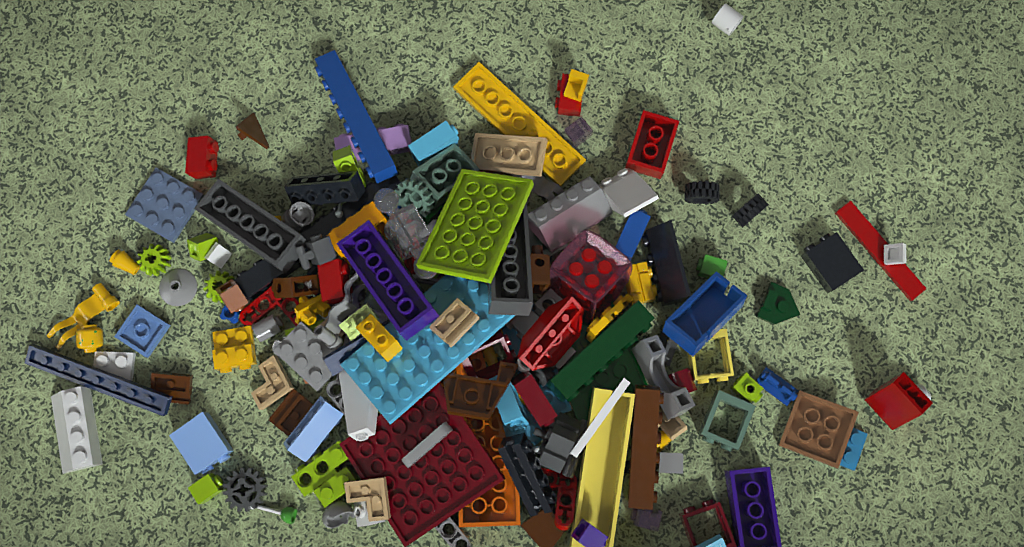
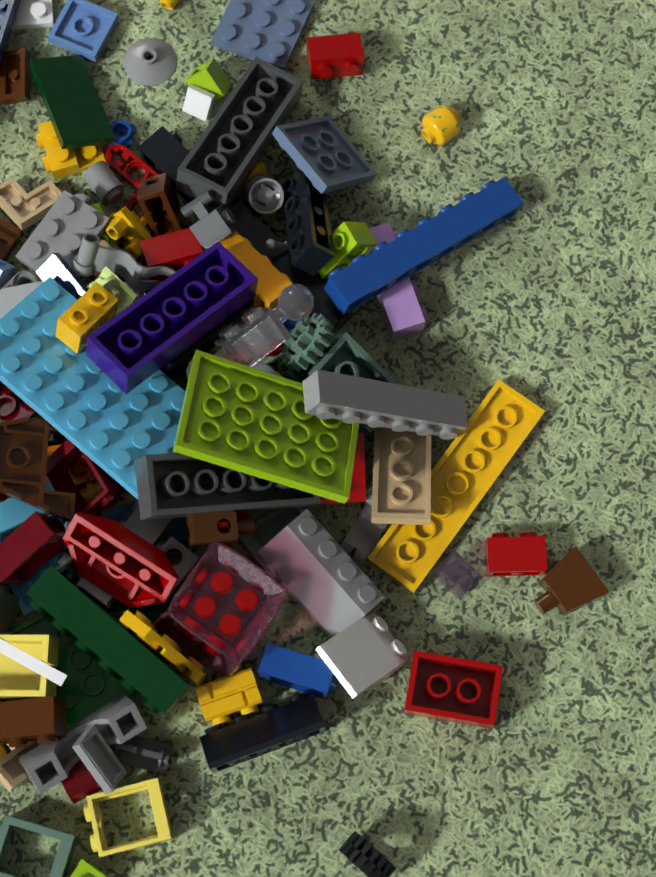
camera: 80 degrees right, 5 degrees down
(160, 262) = (177, 32): lime gear -> none
(200, 343) = (71, 101): none -> dark green tile
(213, 284) = (151, 103): lime gear -> none
(232, 296) = (137, 126): brick -> none
(251, 128) = (385, 115): reddish brown piece -> none
(266, 95) = (441, 125): none -> yellow head
(276, 173) = (324, 154): none -> sand blue plate
(433, 142) = (398, 357): medium azure brick -> none
(454, 322) = (118, 415): tan plate -> none
(467, 154) = (384, 404): none -> light grey brick
(576, 85) = (525, 558): yellow panel -> none
(595, 63) = (570, 585): none -> reddish brown torso
(674, 367) = (99, 759): none -> light grey tile
(702, 192) = (385, 777): black tyre -> none
(704, 314) = (186, 796): blue piece -> none
(709, 265) = (268, 807): bright green brick -> none

